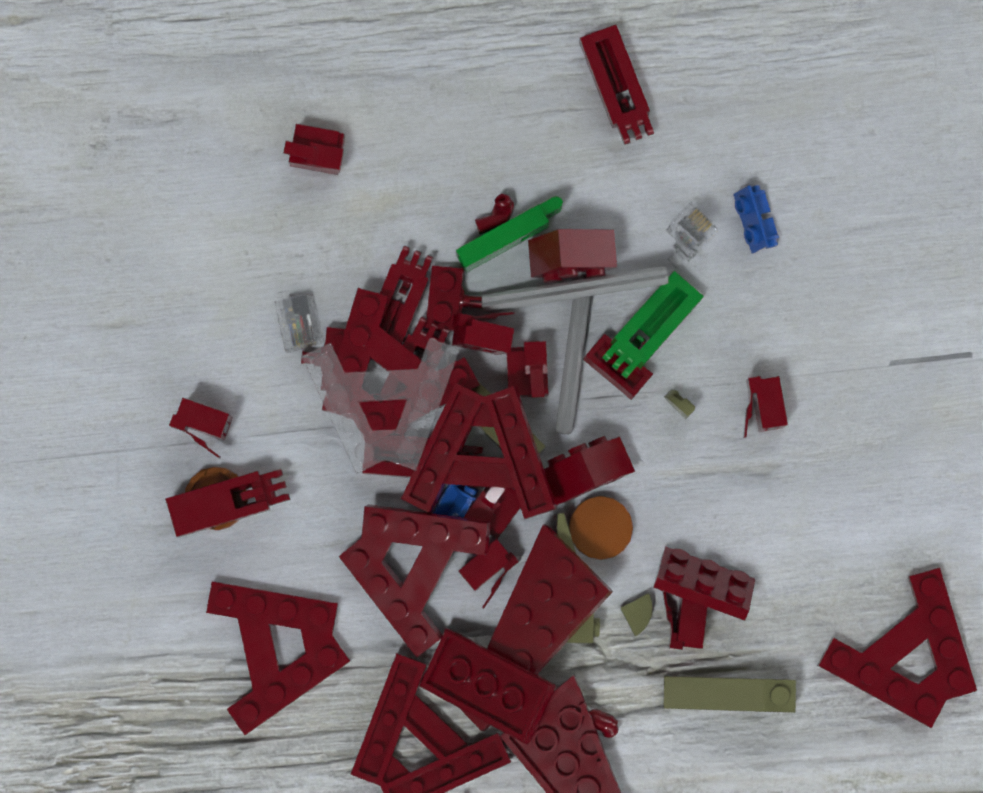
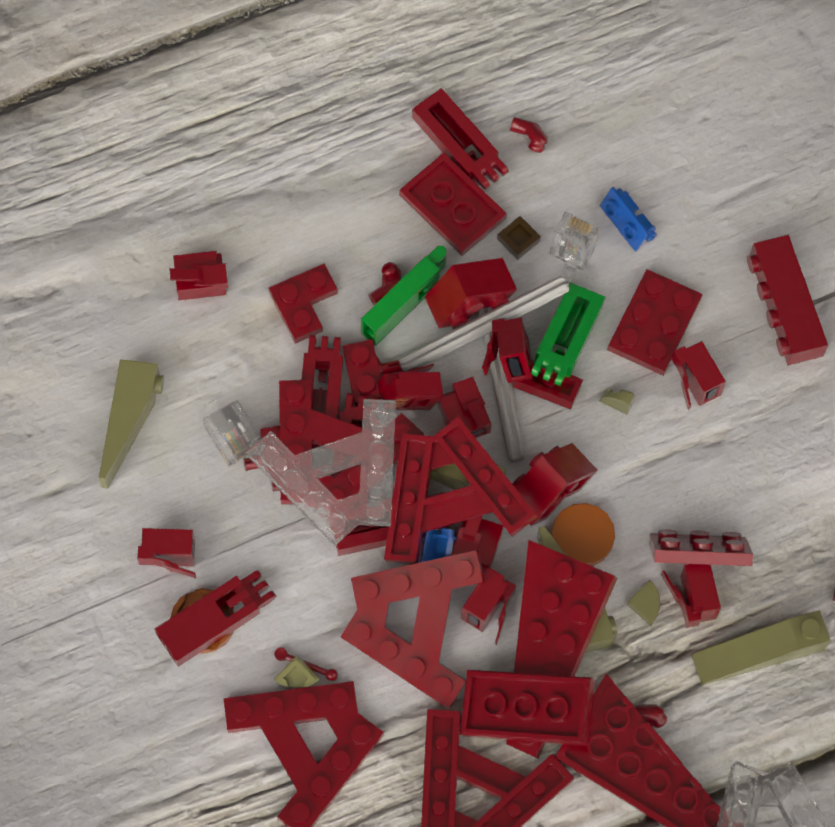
camera: 20 degrees left, 15 degrees down
(212, 262) = (132, 402): none -> olive slope
(280, 554) = (282, 655): none -> dark red hinge
(287, 580) = (297, 675): none -> olive tile
(401, 202) = (295, 301): none -> dark red plate
(587, 150) = (452, 204): none -> dark red plate
(594, 326) = (513, 349): none -> dark red piece
(640, 206) = (518, 237): none -> dark brown plate
(693, 98) = (532, 131): none -> dark red arm
(745, 334) = (654, 322): none -> dark red plate
(881, 354) = (787, 300): none -> dark red brick

